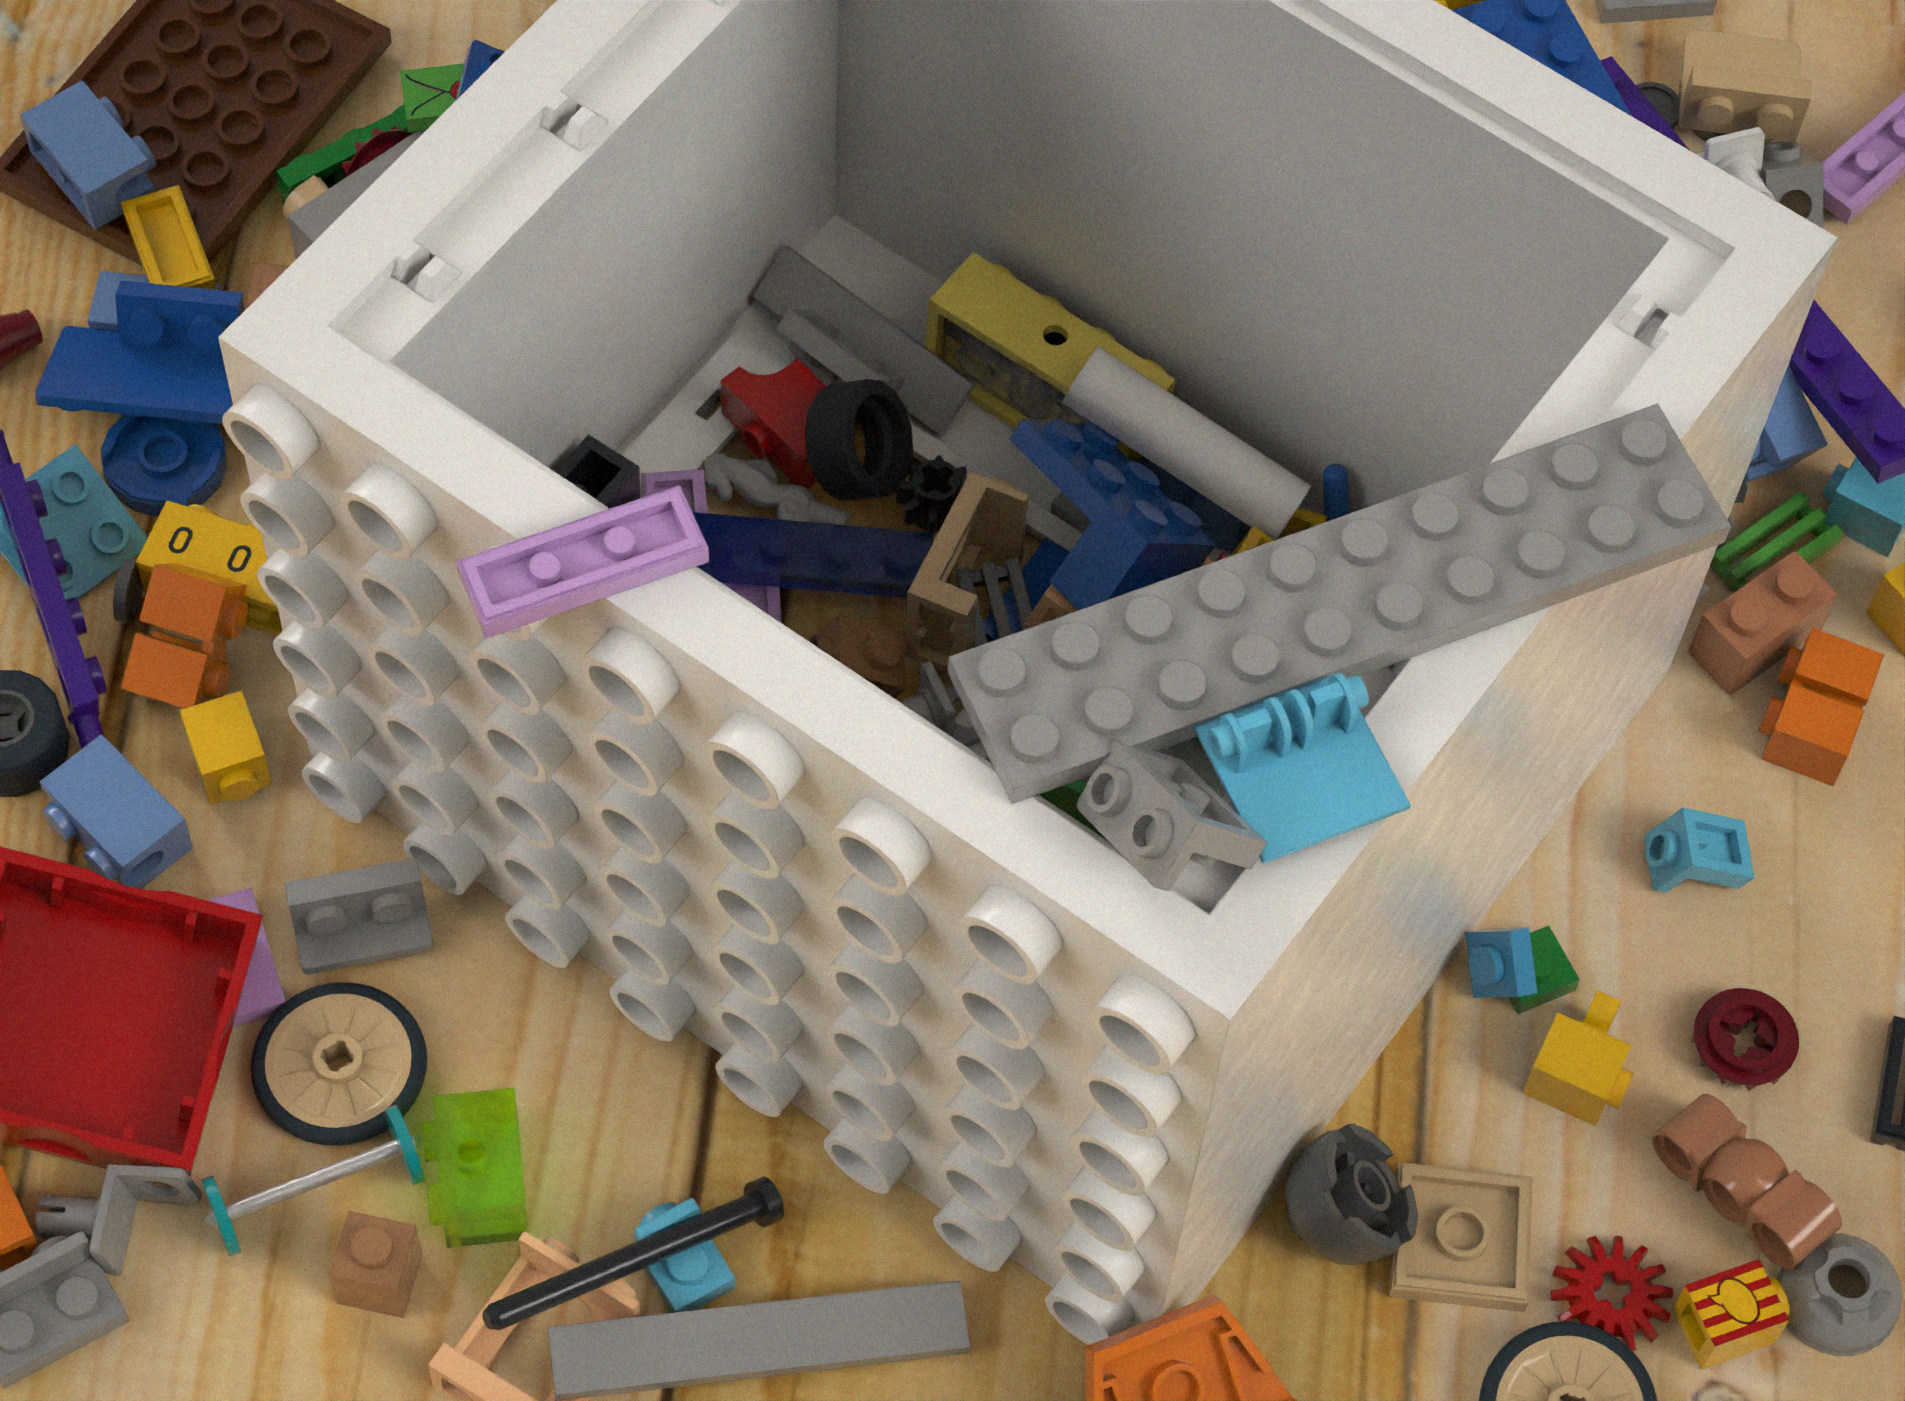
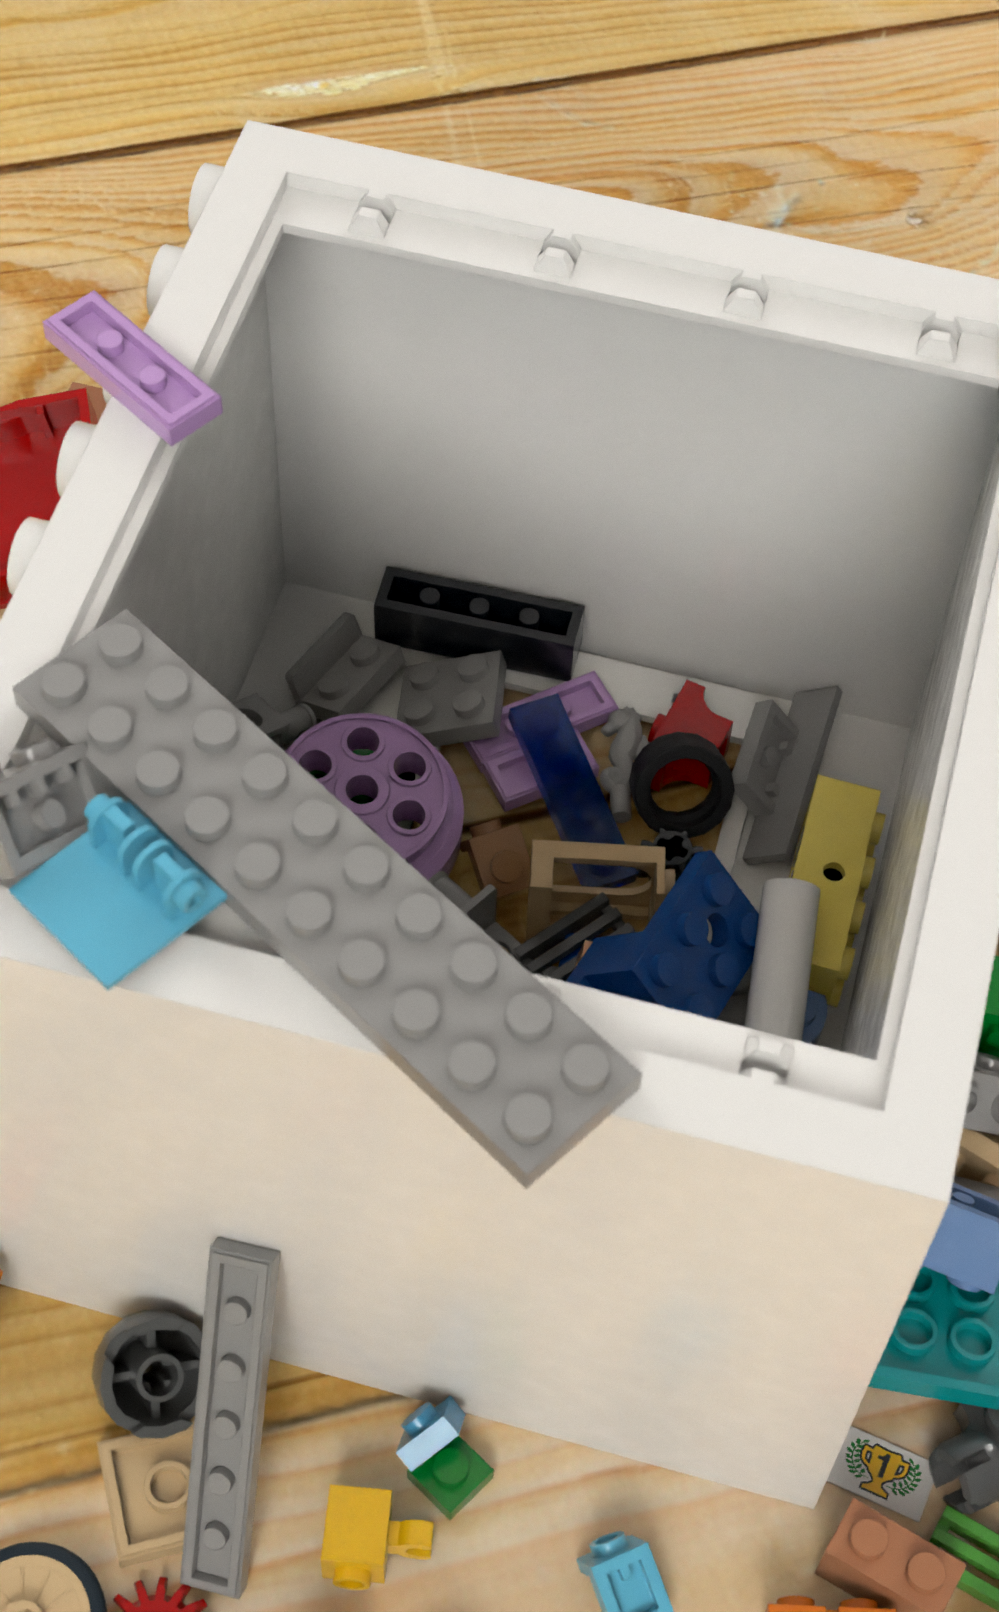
camera: 70 degrees right, 5 degrees down
(1482, 1100) = (229, 1416): none -> light grey tile

